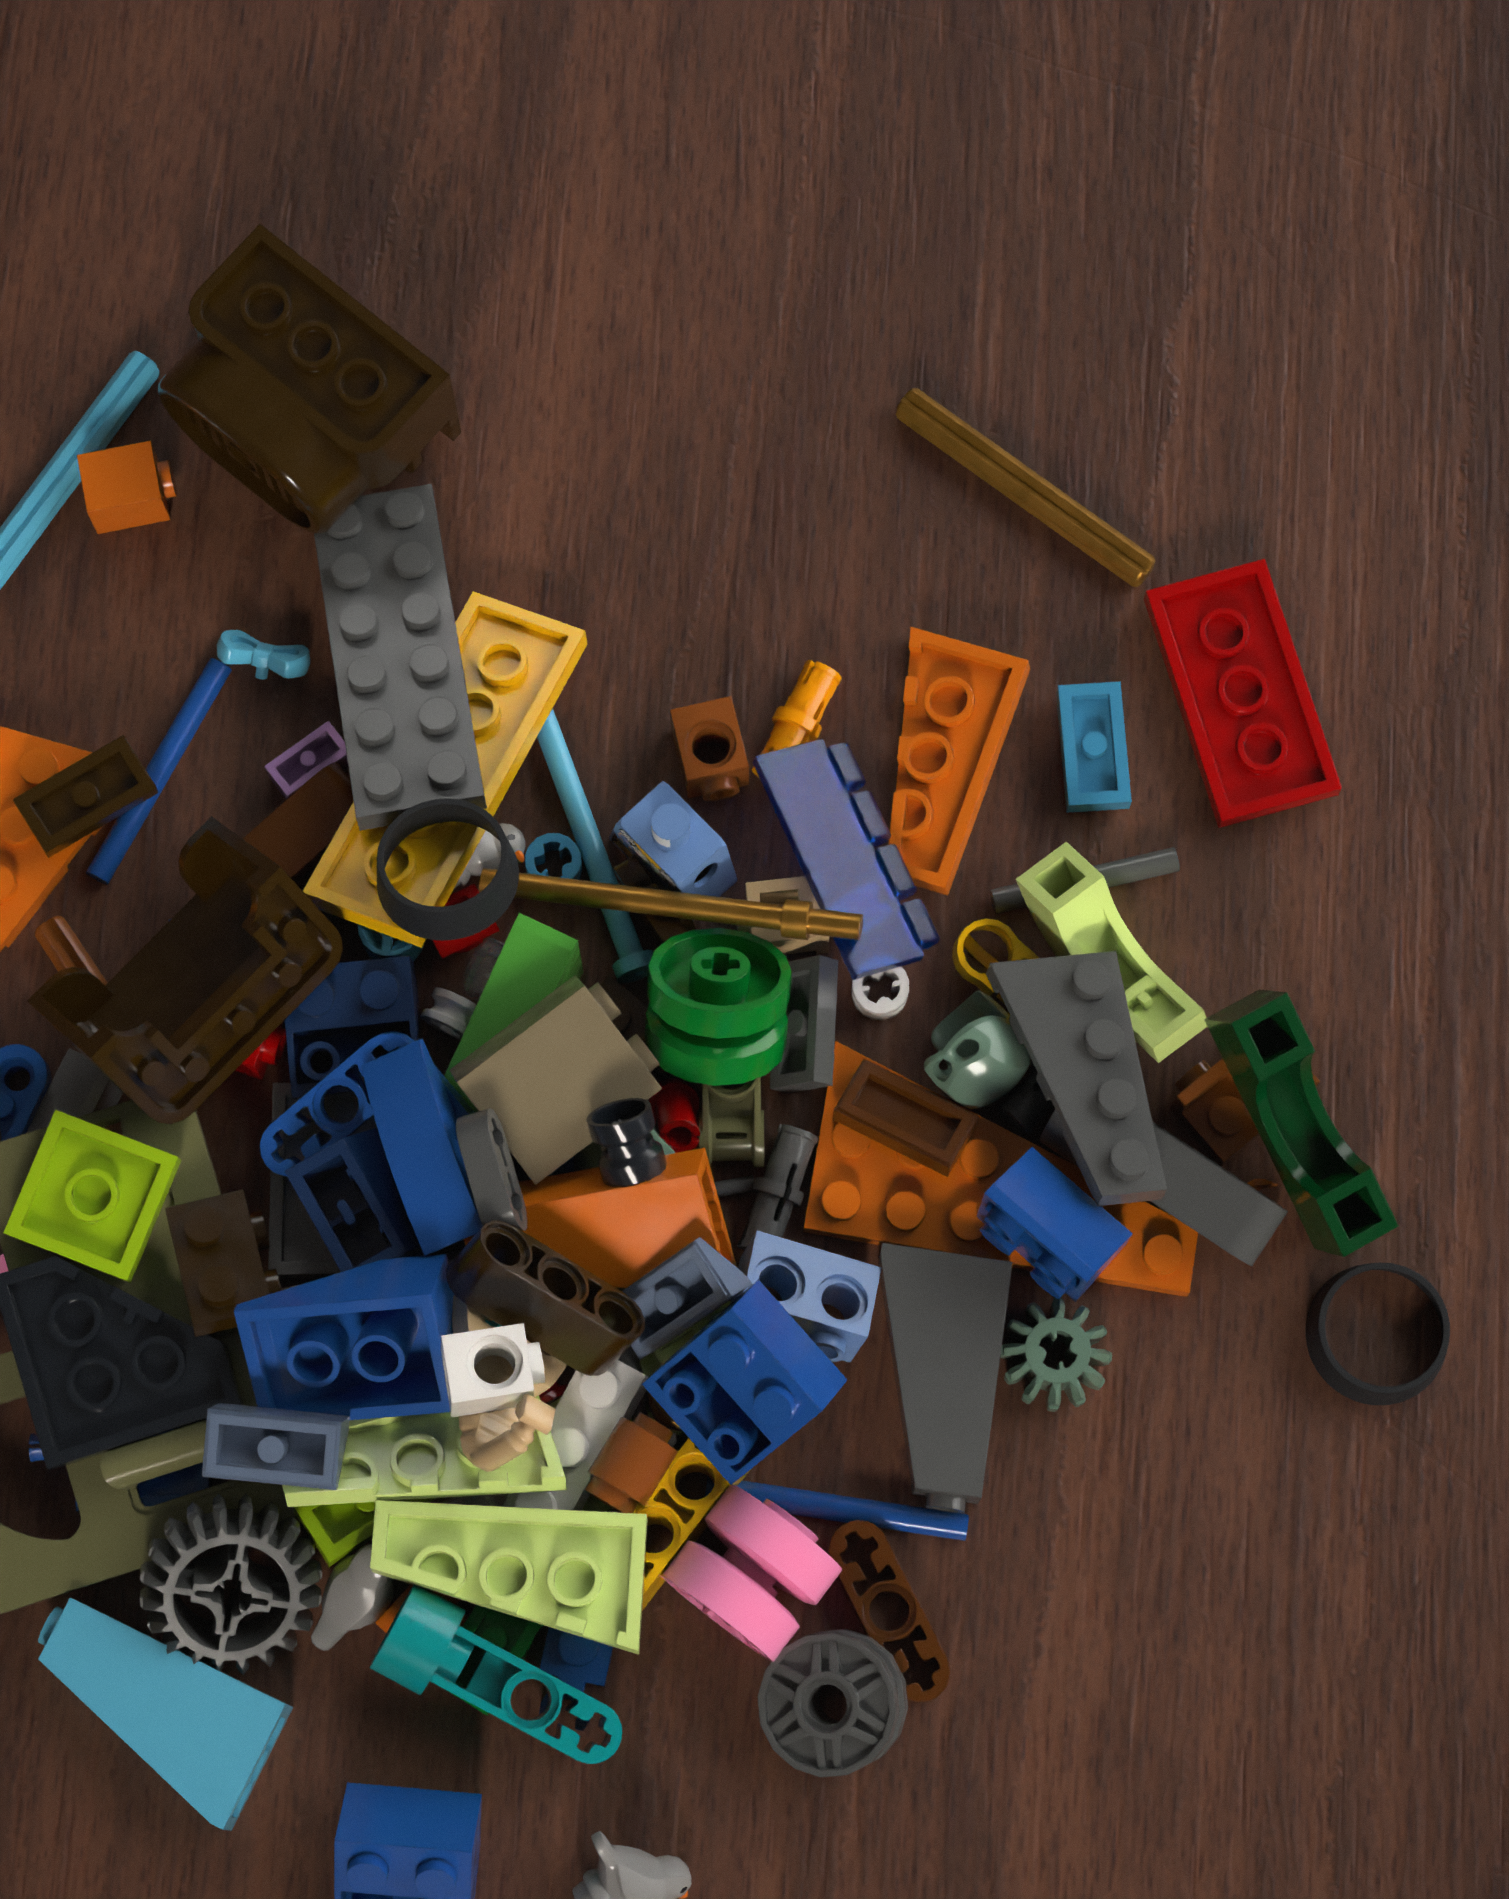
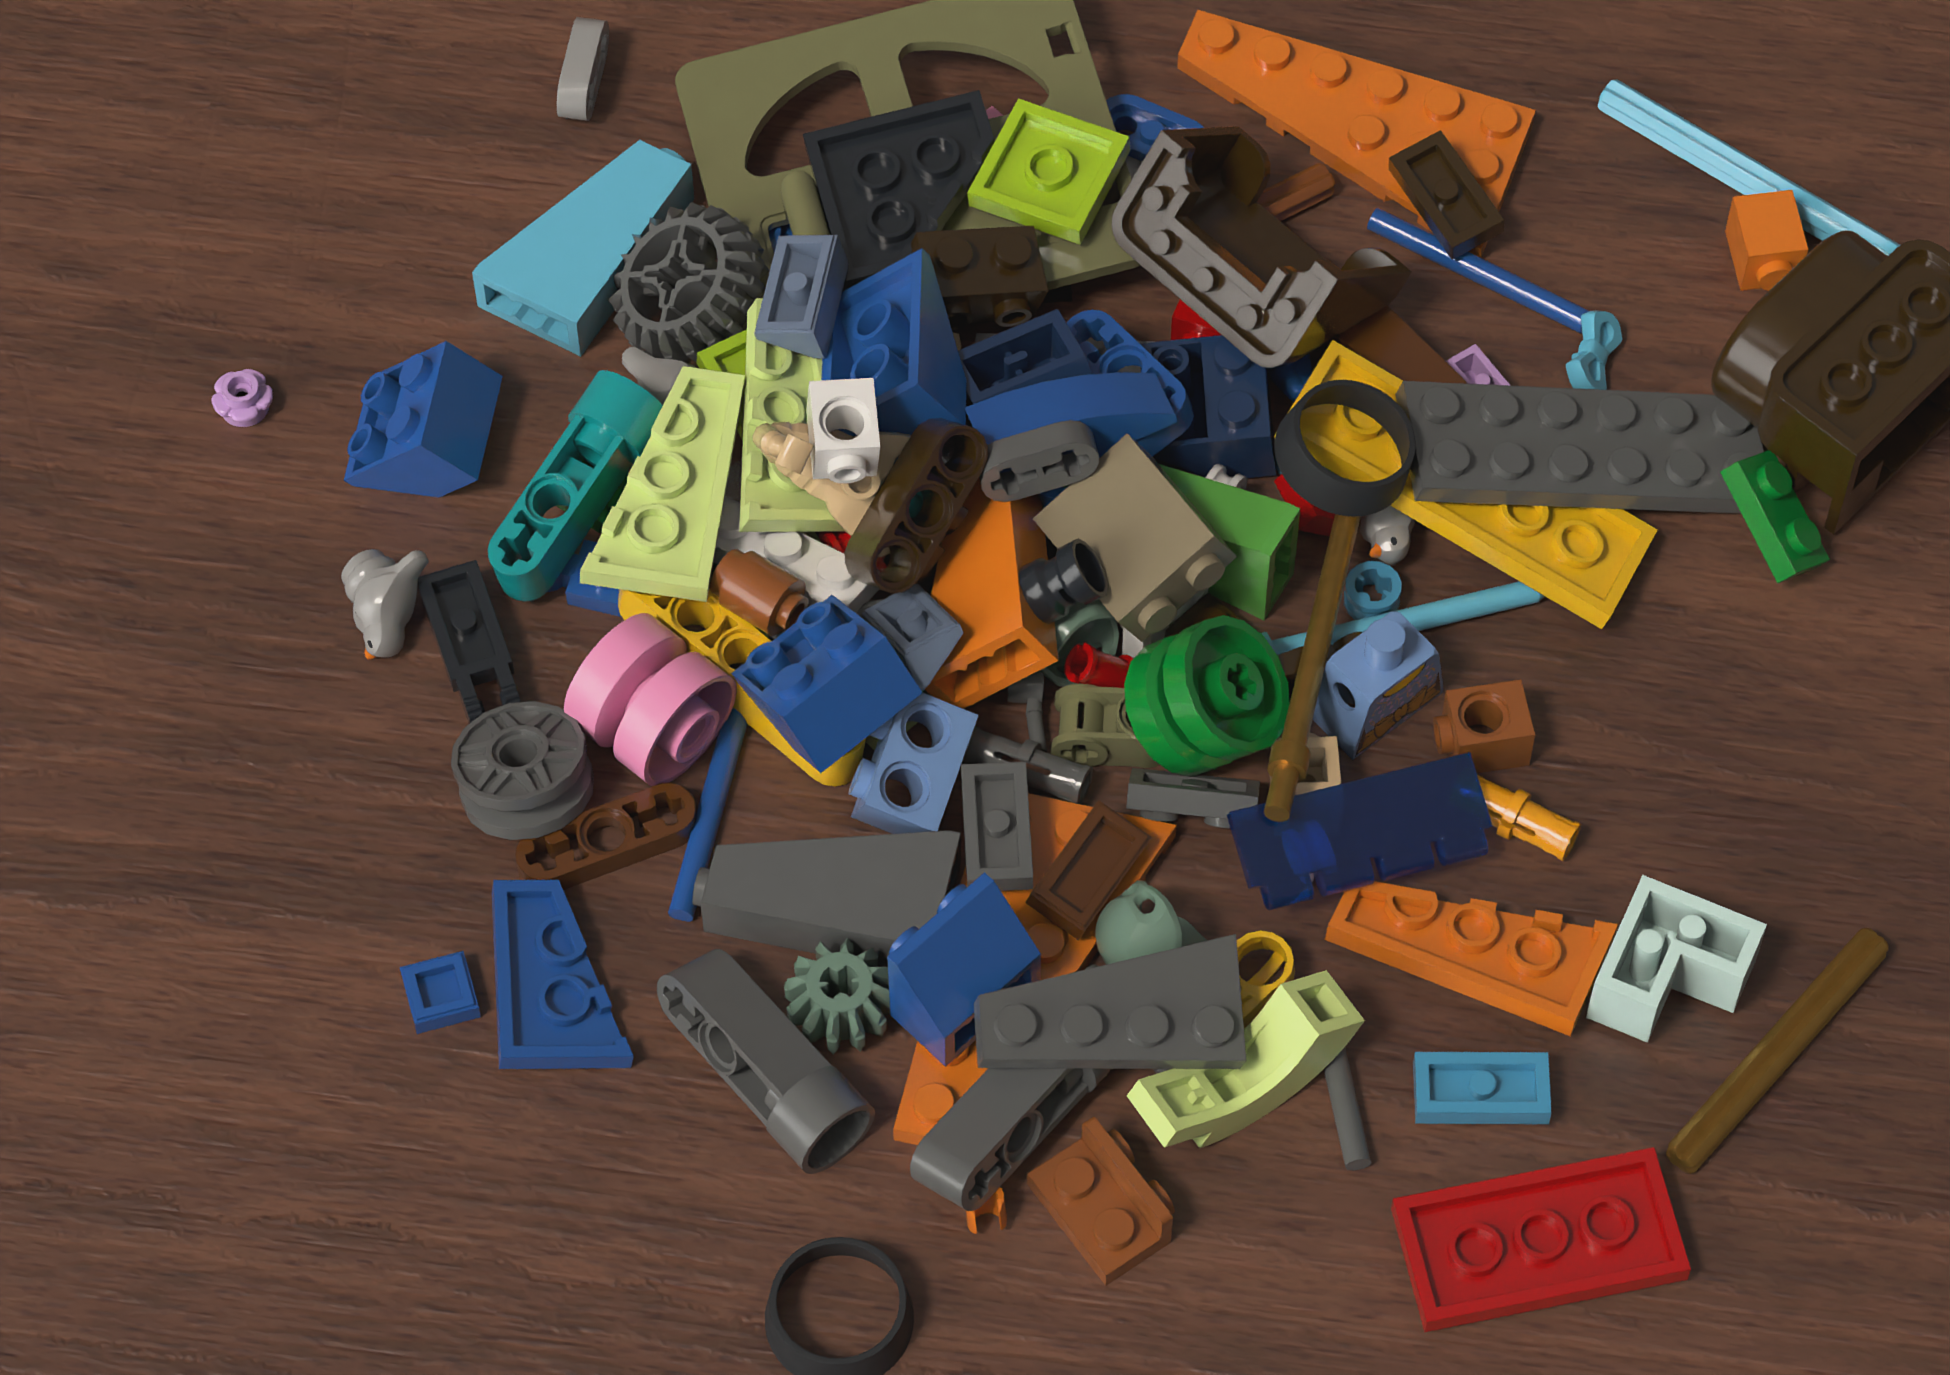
camera: 95 degrees right, 15 degrees down
(460, 478) = (1775, 515): none -> green plate
(666, 1783) = (467, 634): none -> black hinge
(872, 1207) = (997, 824): none -> dark grey plate
(885, 1007) = (1218, 891): white bush -> none
(946, 584) = (1674, 944): none -> light aqua brick
(1066, 1654) = (545, 986): none -> blue wing
(1075, 1765) = (440, 992): none -> blue tile
(1176, 1380) = (766, 1060): none -> dark grey beam
(1321, 1173) = (1003, 1248): dark green arch -> none

